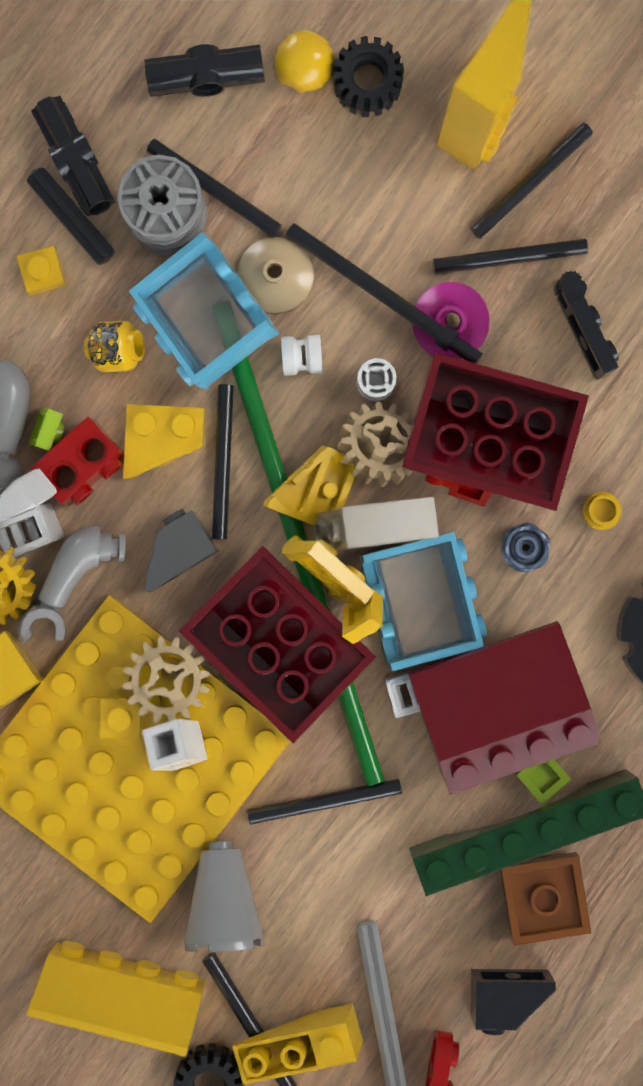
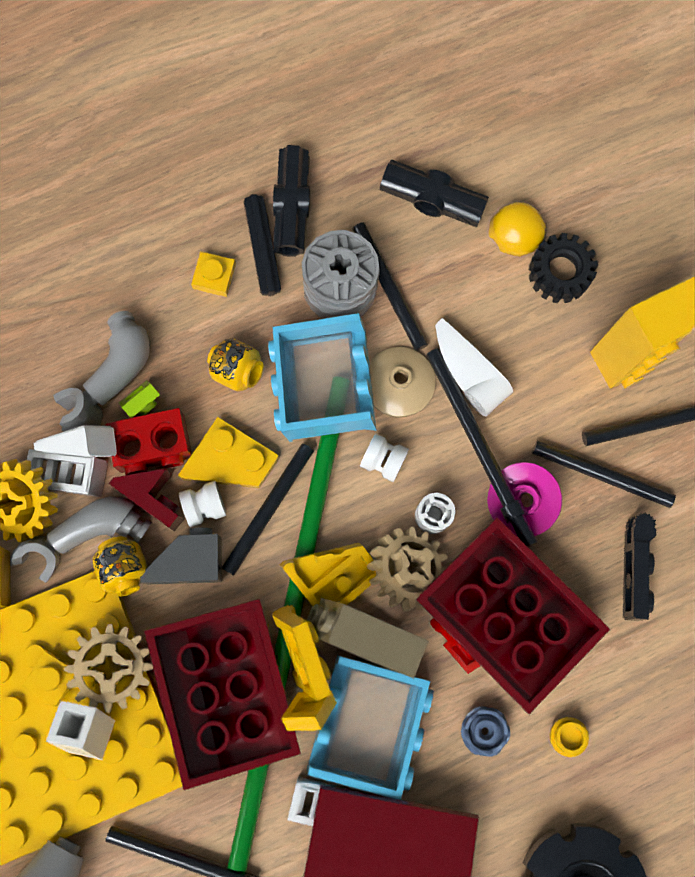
camera: 25 degrees right, 10 degrees down
(99, 510) = (143, 489): none -> dark red slope
(120, 588) = (119, 565): none -> head
(161, 491) = (202, 504): none -> white wheel
(343, 229) = (475, 375): none -> white piece

